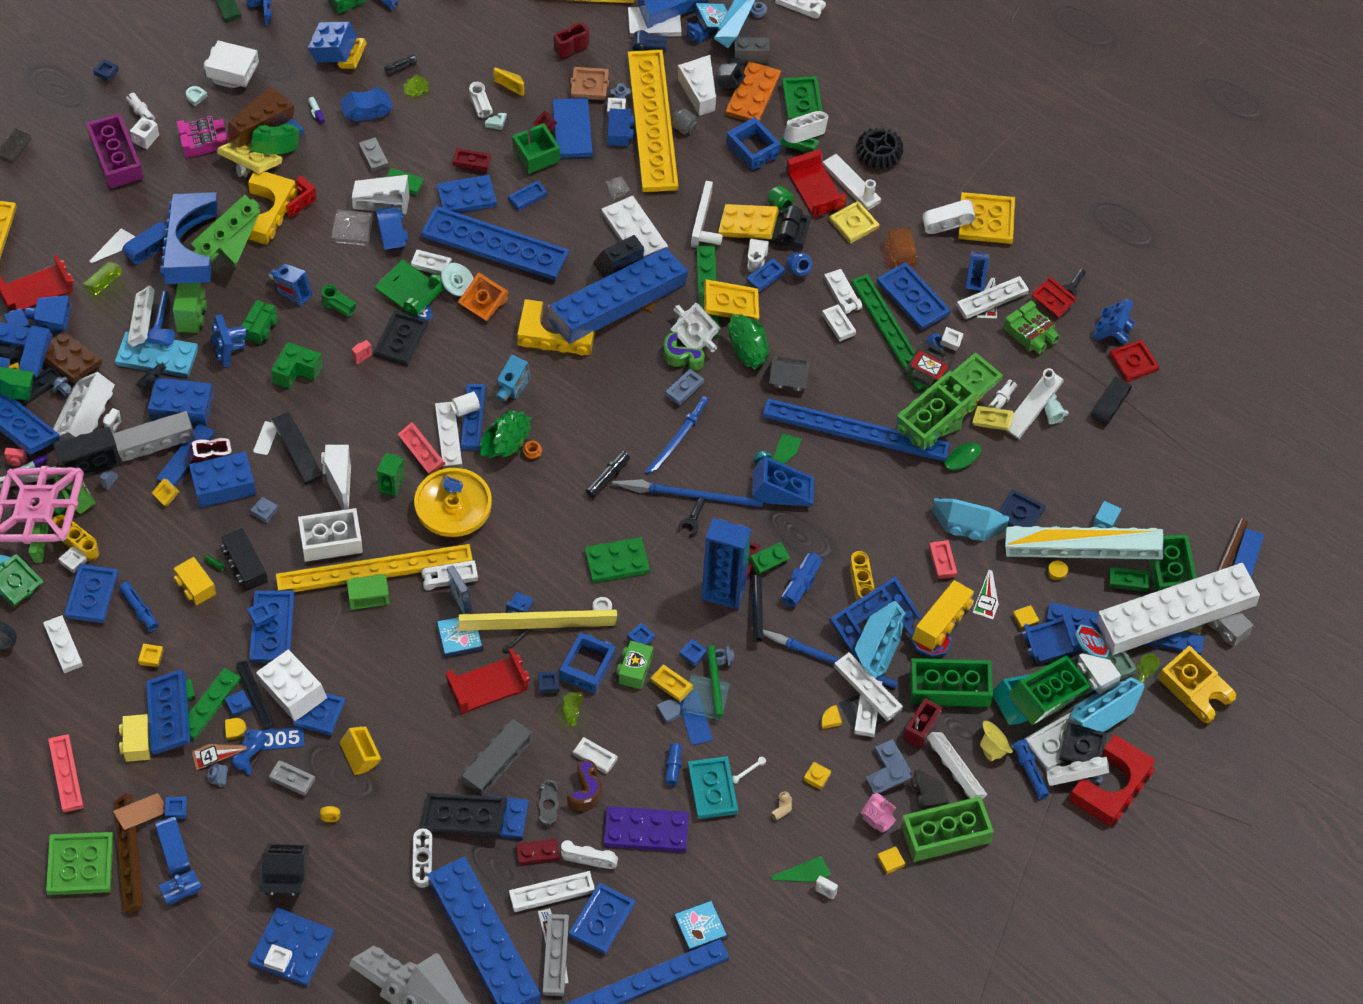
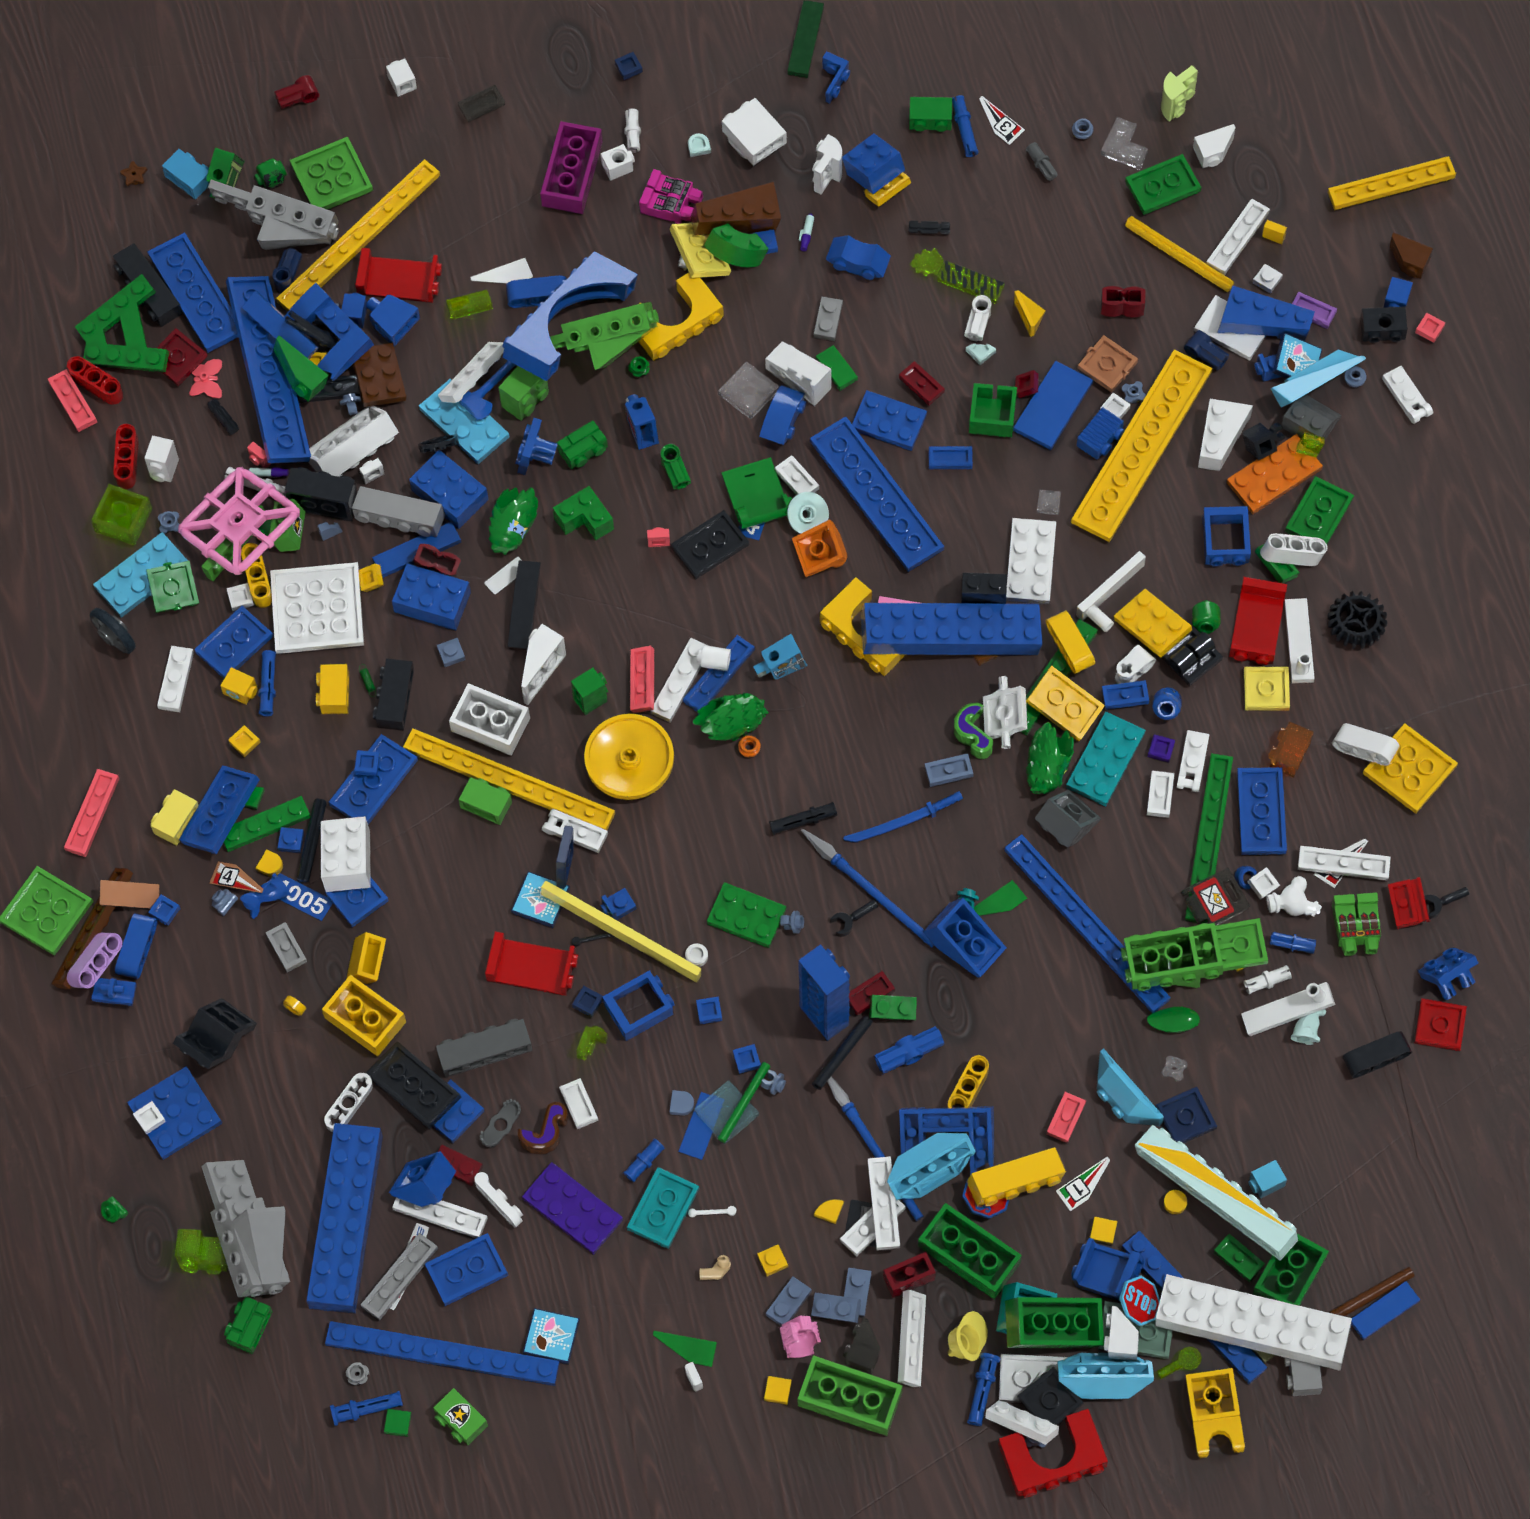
camera: 40 degrees right, 10 degrees up
(119, 620) = (239, 686): none -> yellow brick
(139, 535) = (317, 608): none -> white plate
(149, 872) = (85, 965): none -> lavender beam
(245, 395) = (512, 519): none -> green head
(261, 248) = (639, 361): none -> green plate
(300, 55) = (827, 164): none -> white brick
(306, 196) = (725, 331): red bracket -> none
(390, 788) = (364, 1015): none -> yellow brick
(451, 484) = (638, 737): blue plate -> none
(453, 82) = (970, 281): none -> clear neon green tile
(524, 873) = (424, 1180): none -> blue slope
(635, 664) = (681, 1036): bright green brick -> none
(653, 545) = (794, 922): none -> sand blue plate
(671, 683) = (701, 1077): yellow plate -> none
(684, 121) = (1172, 466): dark grey head -> none
(705, 259) = (1070, 642): none -> yellow beam
(766, 59) = (1310, 444): none -> clear neon green plate
(784, 322) = (1105, 759): none -> teal plate
(815, 295) = (1161, 748): none -> dark purple tile
(851, 796) = (788, 1301): none -> sand blue plate
(977, 269) = (1352, 817): blue torso -> none
(979, 338) = (1293, 900): none -> white animal
(987, 482) = (1174, 1062): none -> clear plate
(993, 418) = (1235, 998): light yellow plate -> none
(1005, 362) = (1293, 942): none -> blue axle

